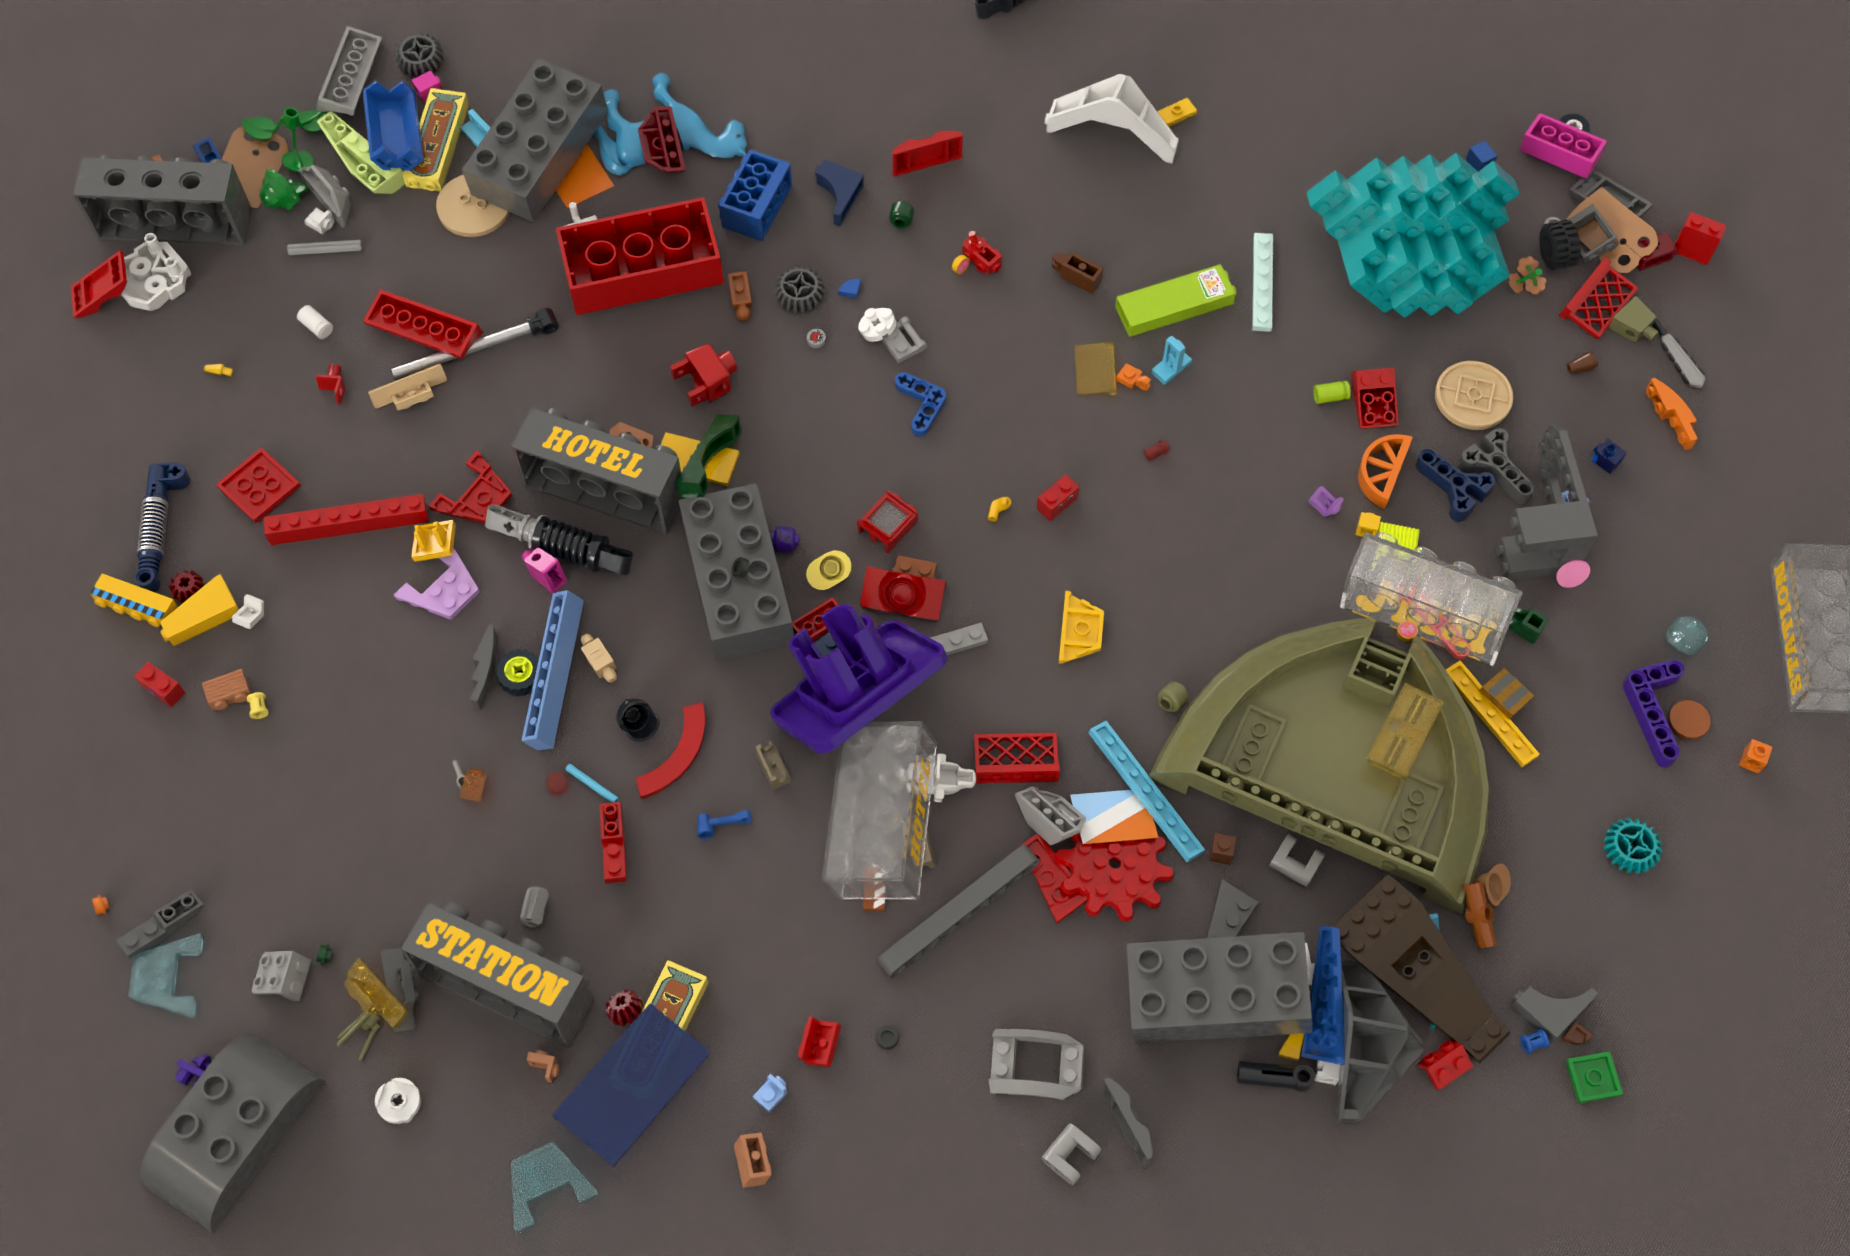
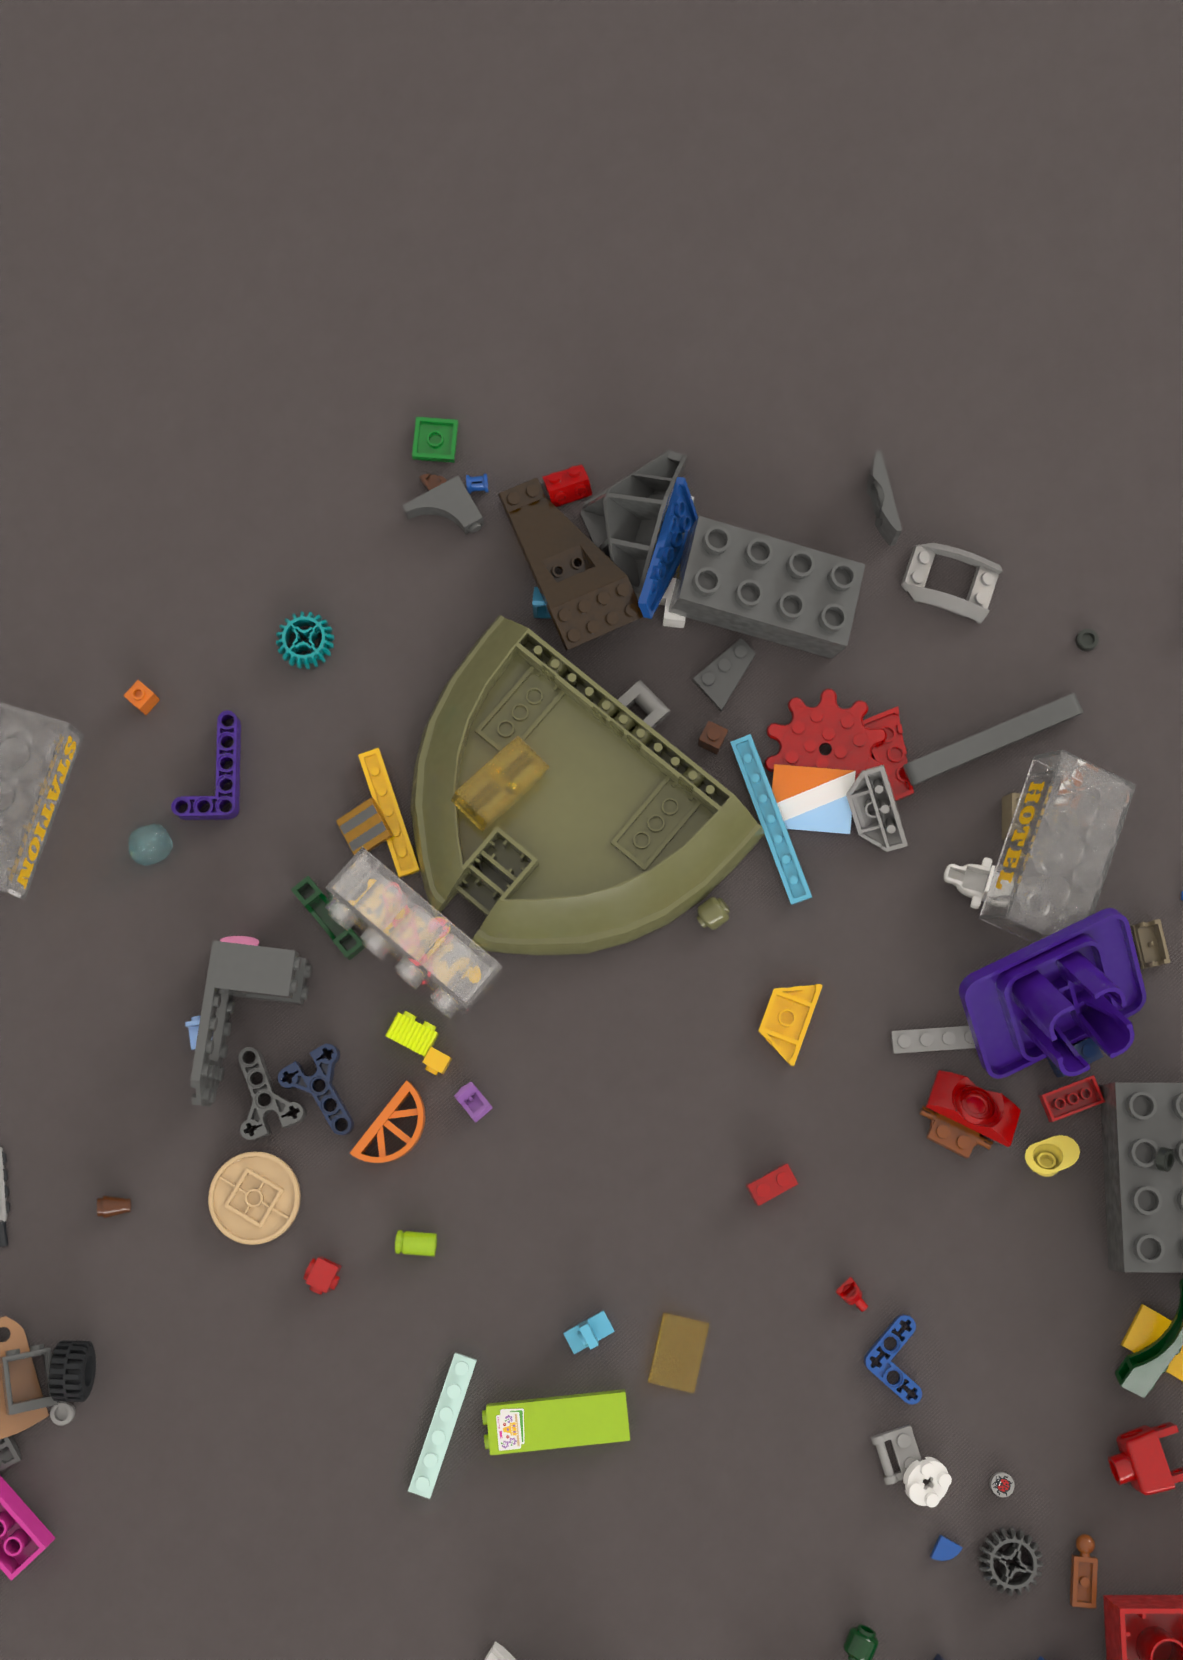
camera: 165 degrees left, 15 degrees up
(785, 539) = (1091, 1212): dark purple head -> none
(819, 1042) = (1155, 647): red bracket -> none
(888, 520) = (970, 1205): red window -> none
(960, 264) = (804, 1547): tile -> none
(968, 438) = (852, 1294): none -> red piece
(982, 254) = (779, 1561): red brick -> none
(998, 506) = (841, 1194): yellow arm -> none
(1019, 773) = (899, 872): red fence -> none
(1061, 1148) = (952, 494): light grey connector -> none
(1078, 270) = (664, 1494): reddish brown hinge -> none
(1132, 376) = (640, 1329): orange plate -> none
(1156, 450) = (640, 1220): clear red pin -> none
(1274, 1075) = (730, 511): black piece -> none
(1375, 397) = (368, 1224): red slope -> none
(1396, 354) = (322, 1275): none -> red brick
(1418, 230) = (238, 1426): teal panel -> none
(1479, 914) = (485, 605): dark orange piece -> none
(1480, 155) = (108, 1539): blue panel -> none
(1496, 884) = (460, 634): medium nougat piece -> none
(1530, 276) = (121, 1334): nougat plant -> none
(1585, 293) = (64, 1307): red fence -> none
(1608, 455) = (137, 1078): clear blue brick -> none
(1634, 321) = (27, 1246): olive torso -> none
(1672, 407) = (38, 1122): orange slope -> none
(1689, 720) = (188, 756): dark orange tile -> none

